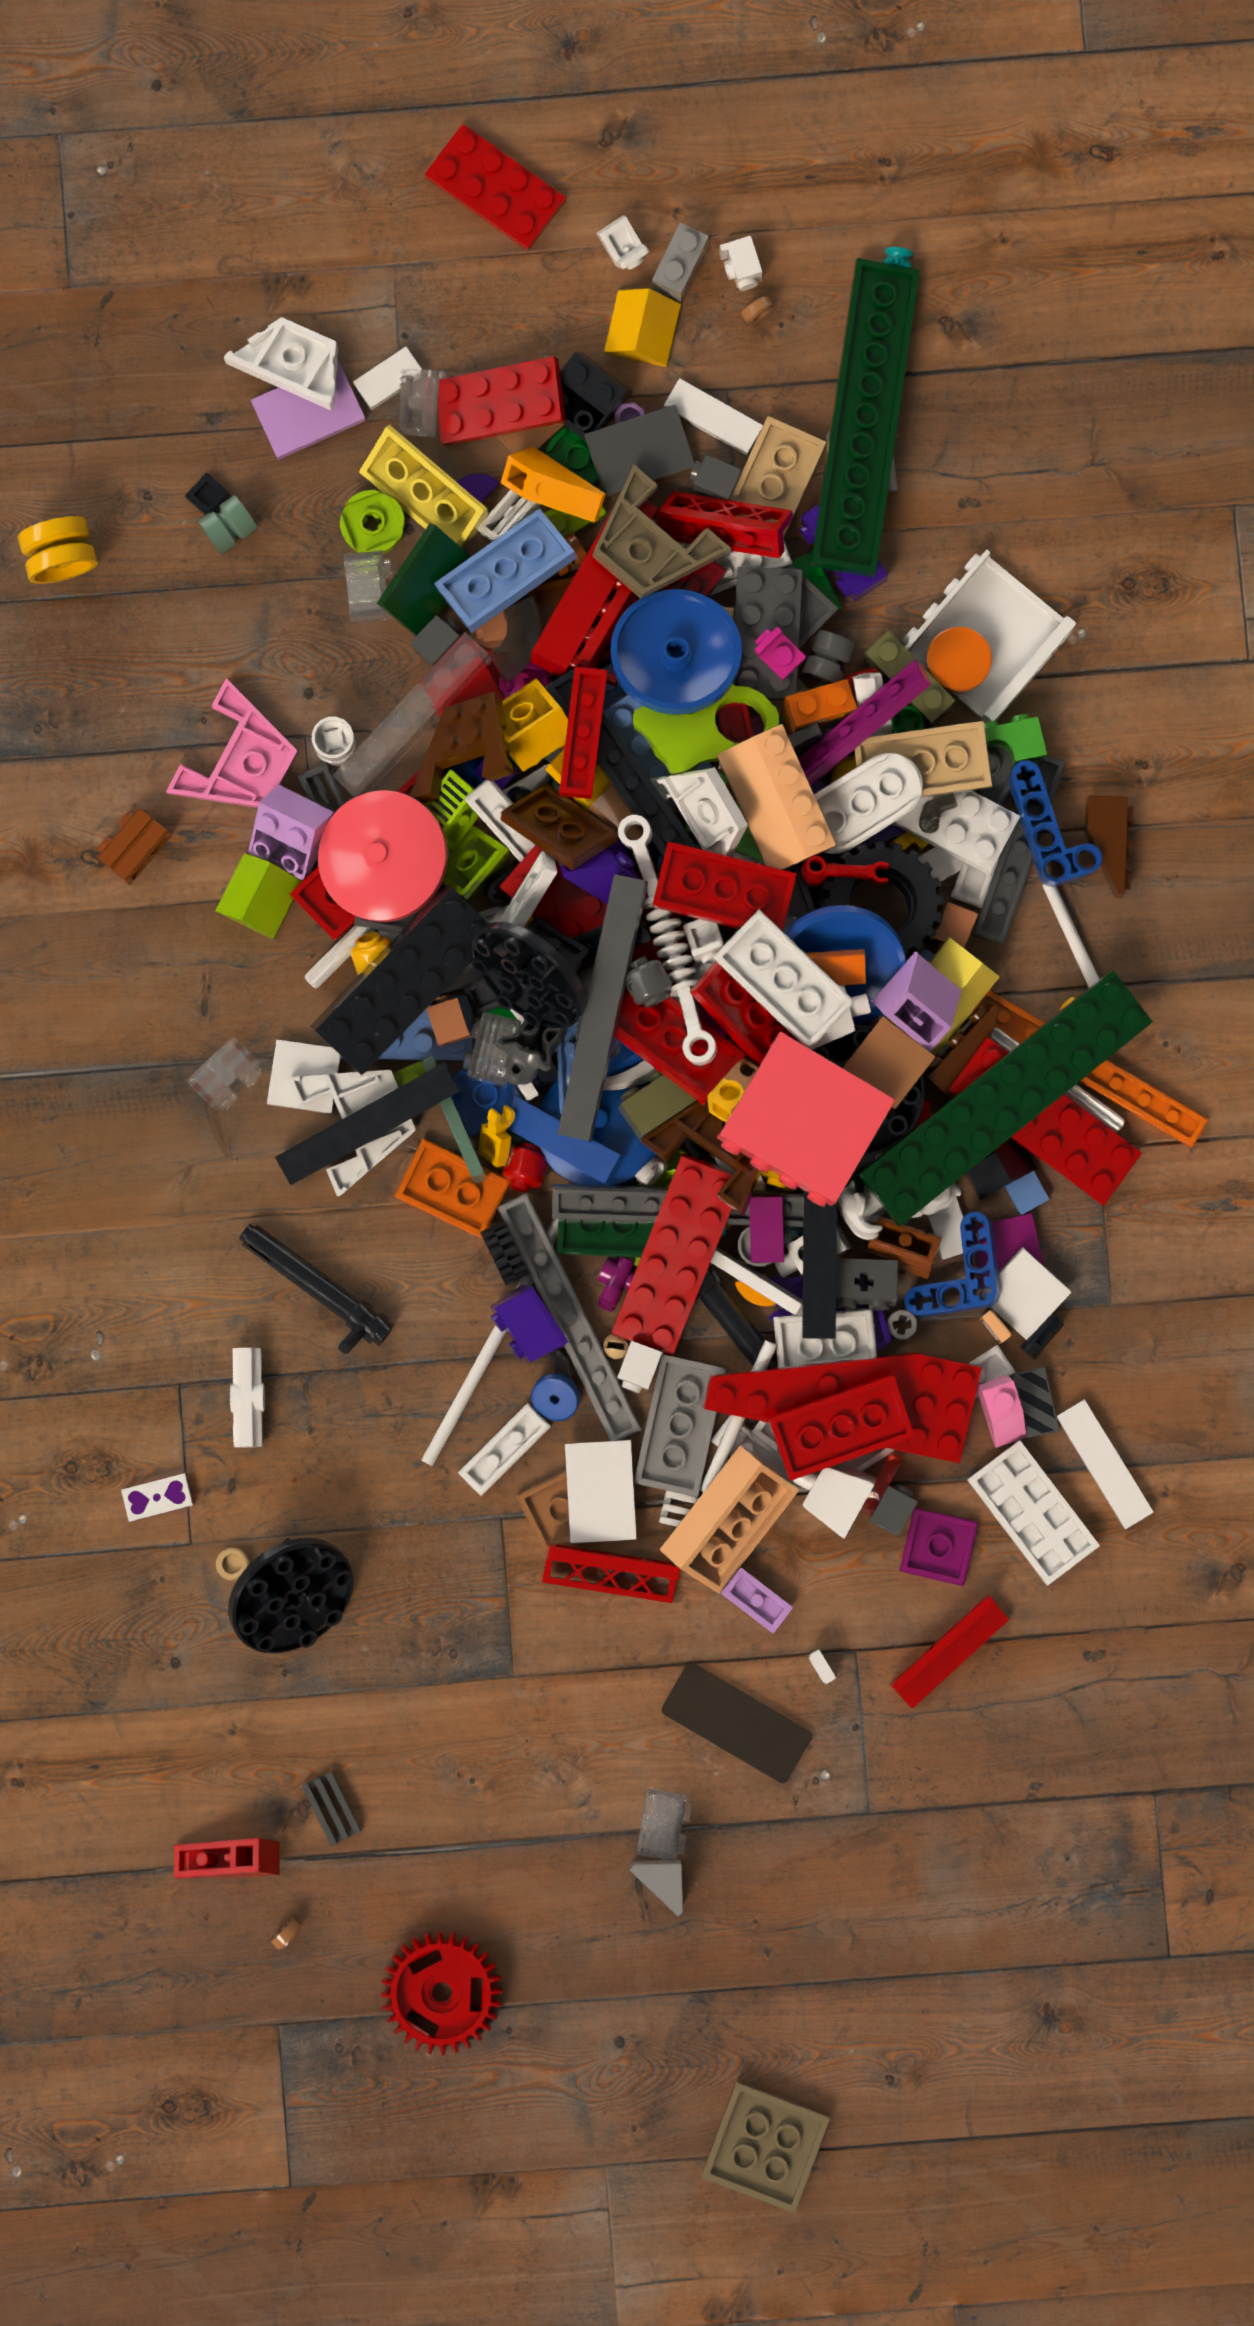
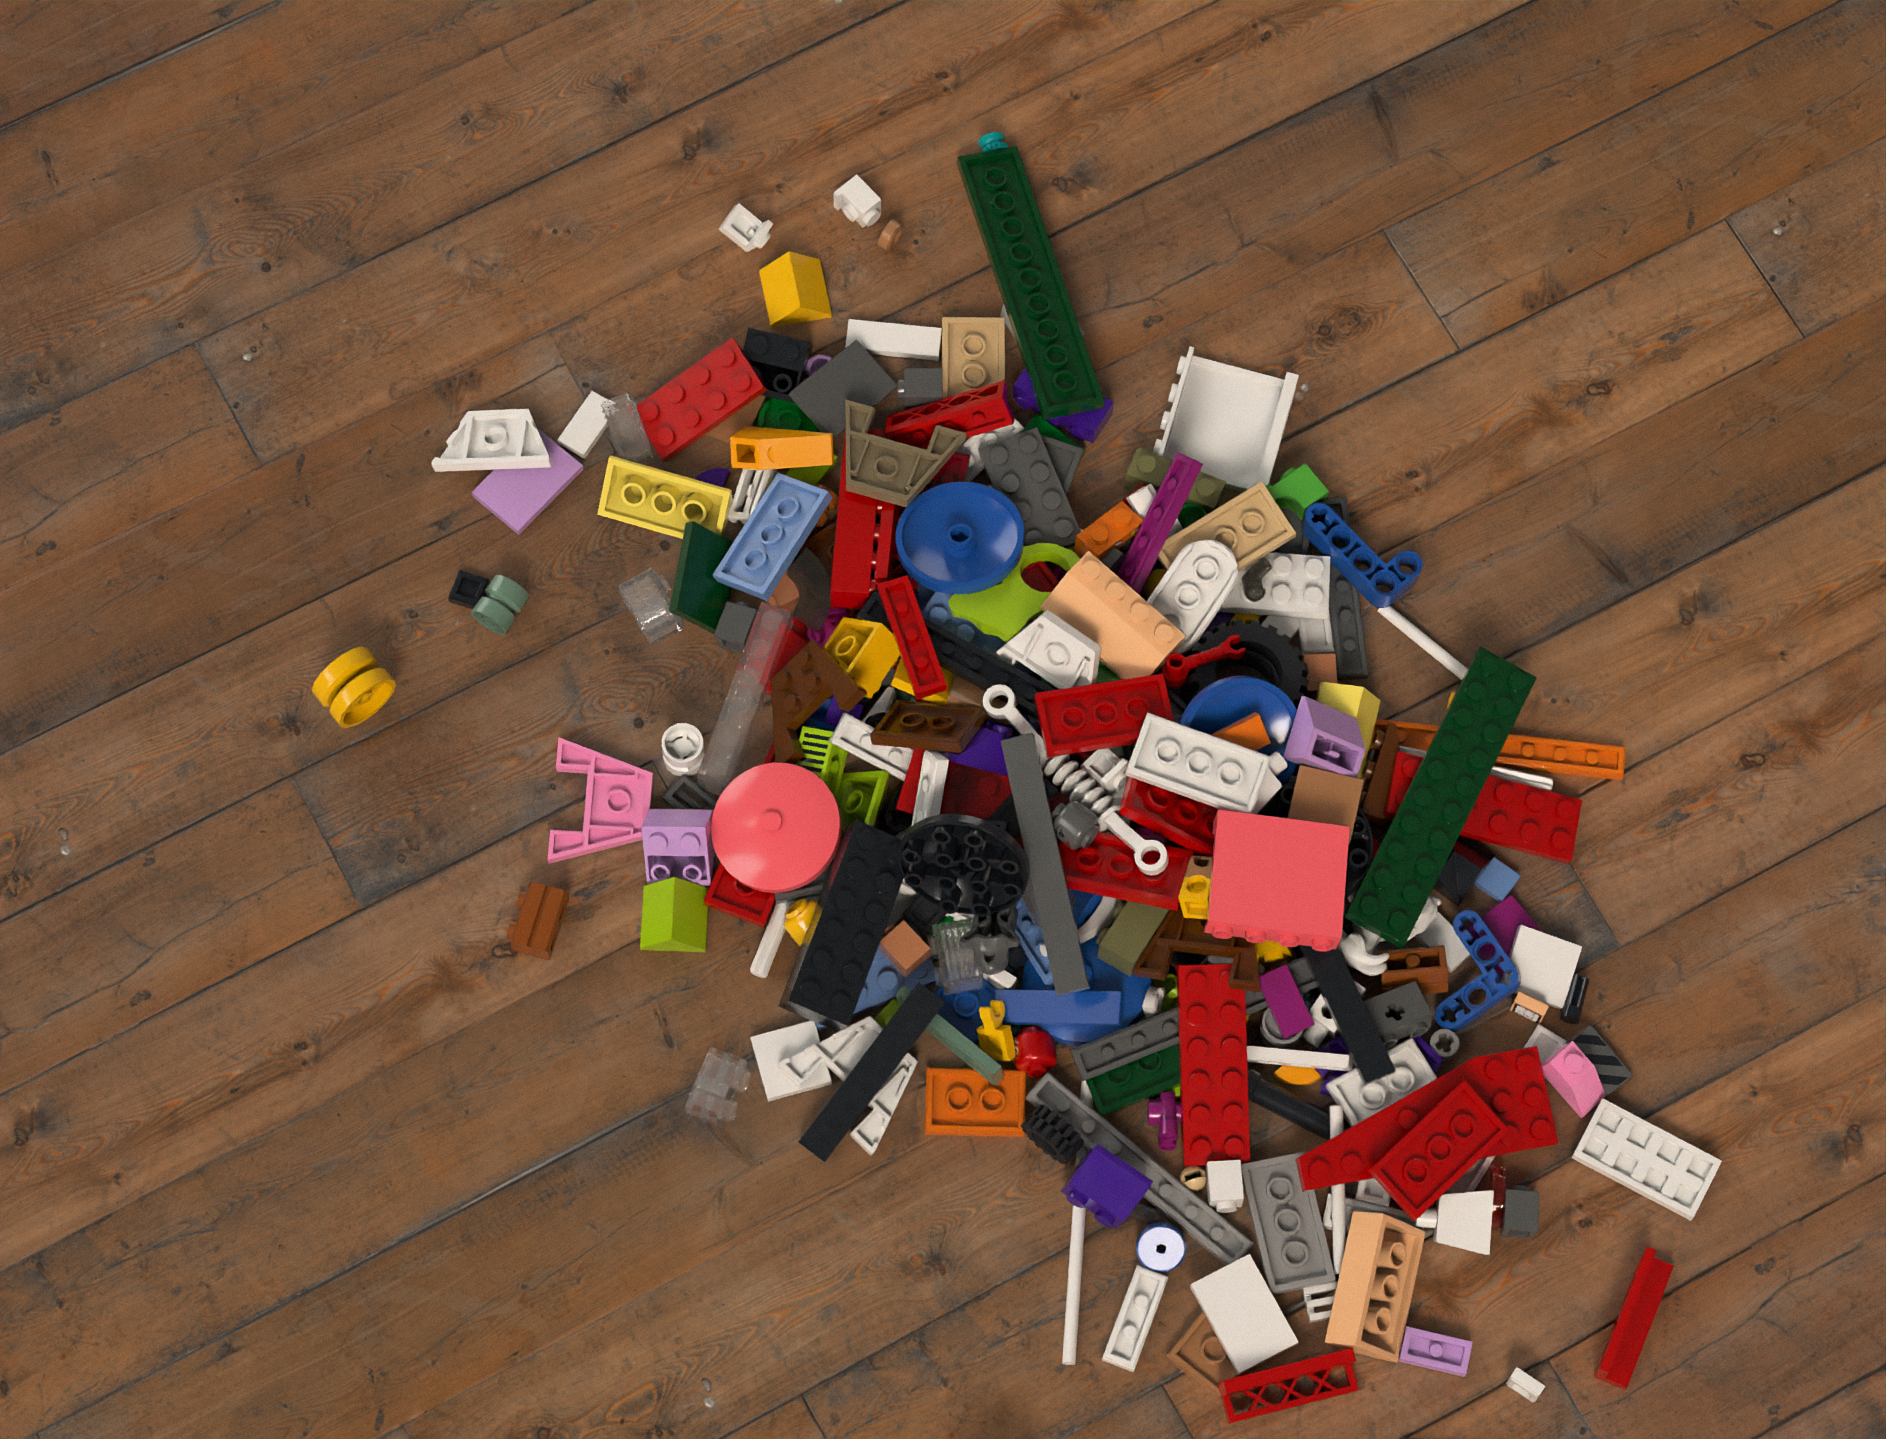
camera: 30 degrees left, 15 degrees down
(247, 1397) = (873, 1375): white piece -> none
(357, 1314) = (941, 1253): black cylinder -> none
(381, 507) = (629, 534): lime plate -> none
(495, 187) = (609, 229): red plate -> none
(680, 263) = (804, 221): light grey brick -> none
(778, 652) = (1051, 503): dark pink bracket -> none
(829, 657) = (1094, 494): dark grey wheel -> none
(938, 1546) = (1576, 1229): magenta tile -> none
(959, 659) = (1214, 445): orange tile -> none
(1104, 1464) = (1688, 1089): white tile -> none
(1107, 829) = (1409, 529): reddish brown slope -> none

